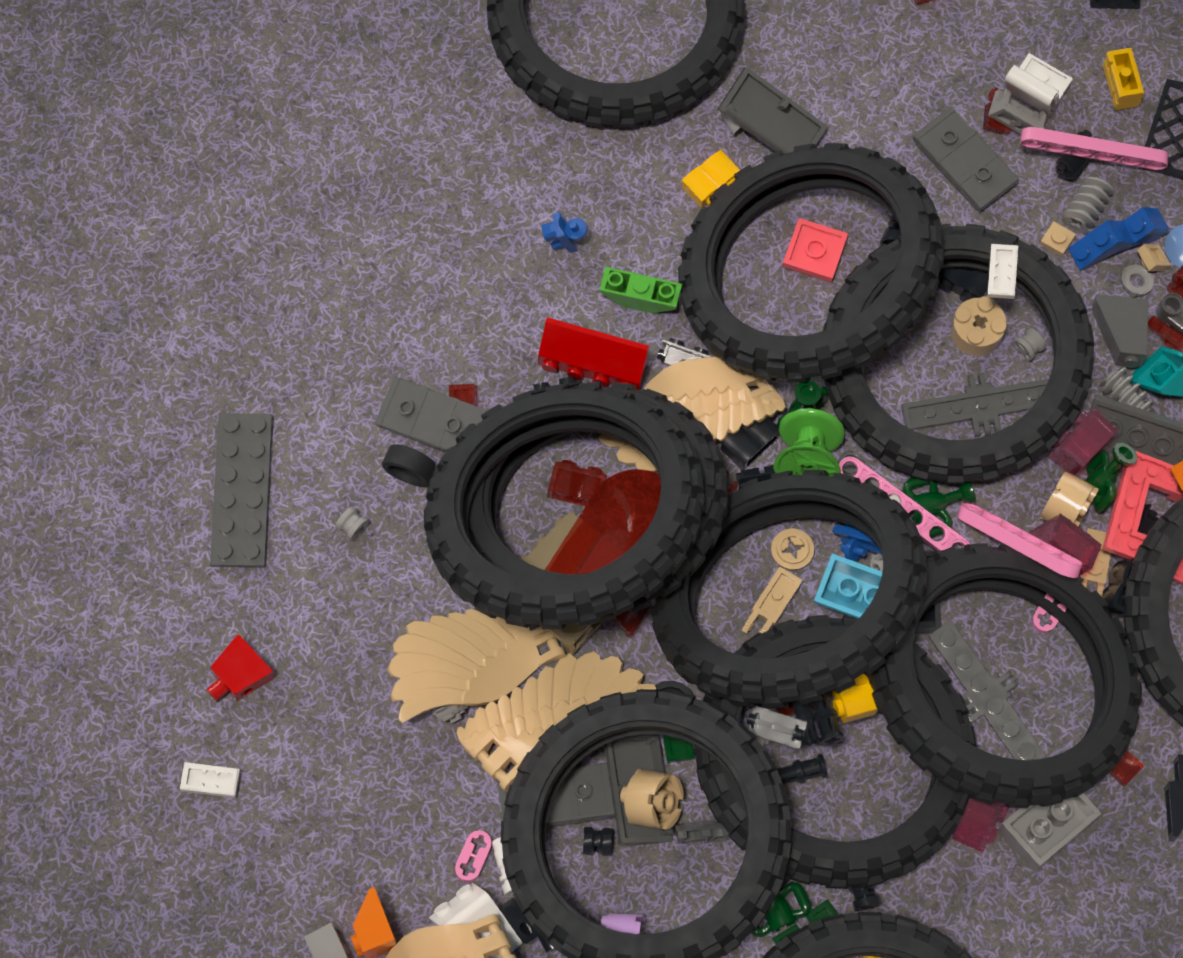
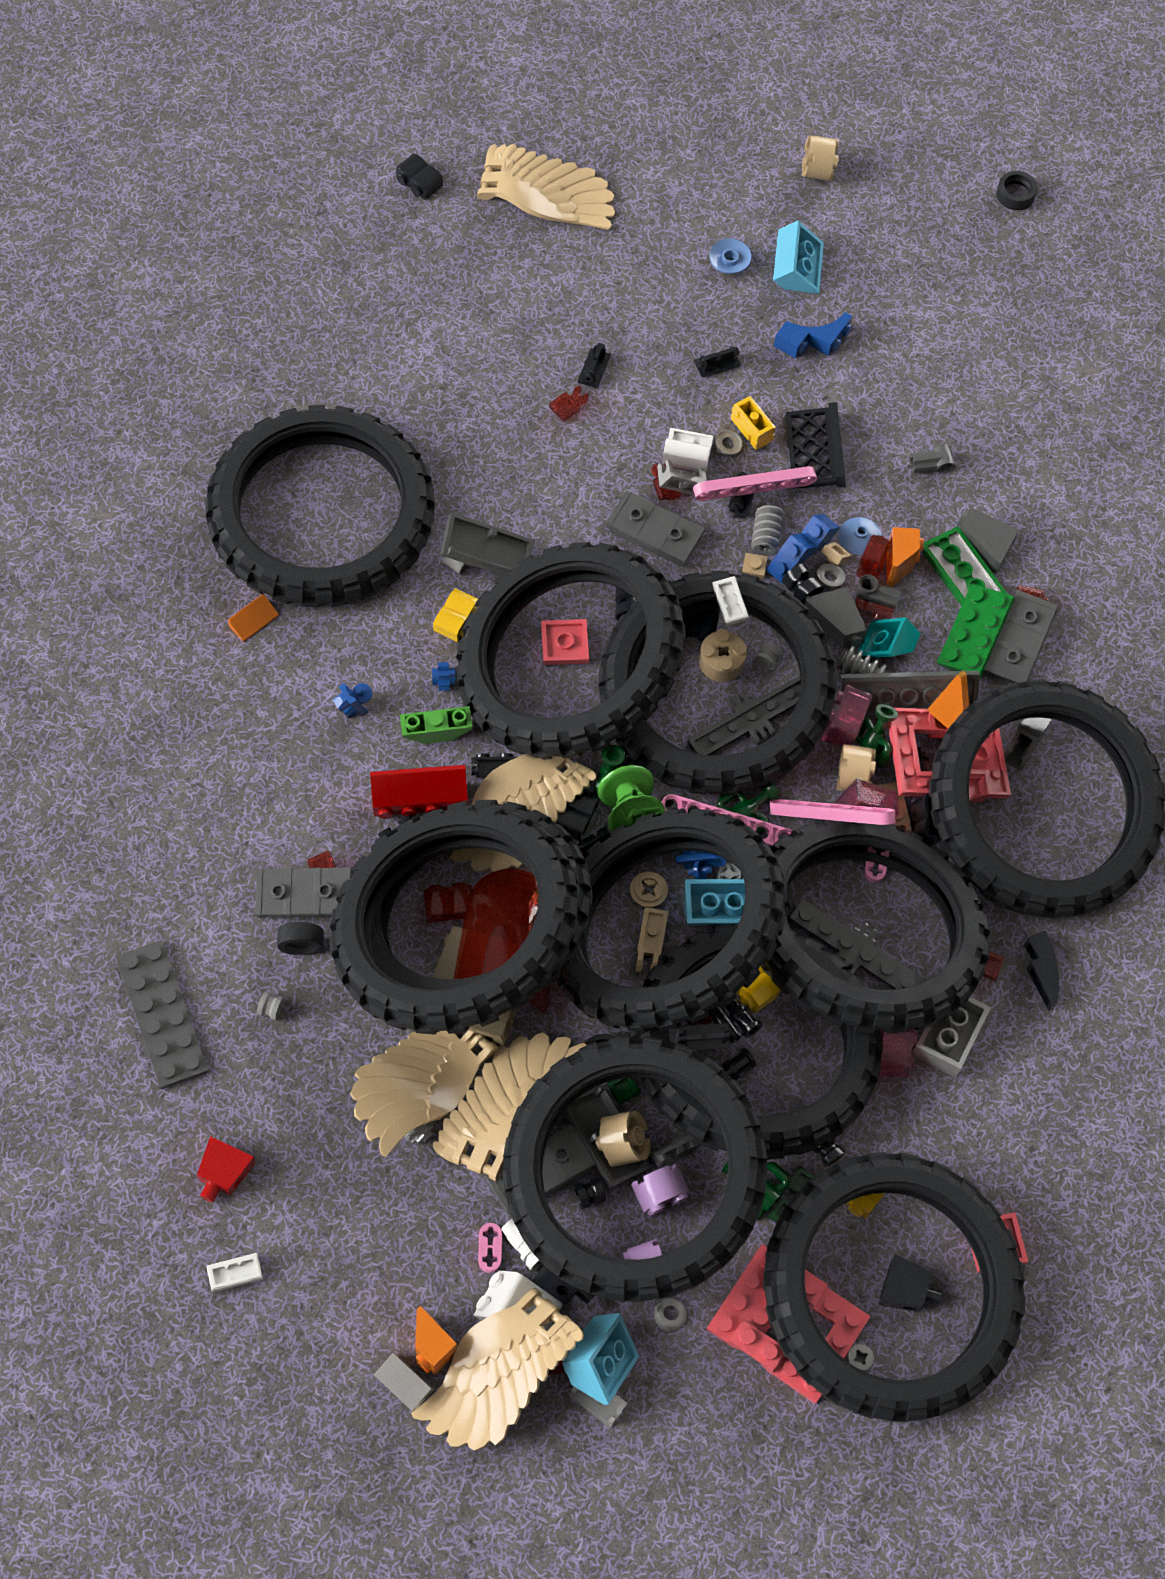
camera: 25 degrees left, 5 degrees down
(497, 106) = (252, 617): none -> orange slope
(670, 241) = (443, 676): none -> blue gear
(670, 865) = (661, 1188): none -> lavender brick
(1092, 83) = (731, 436): none -> light grey piece
(1100, 277) = (802, 583): none -> black wheel

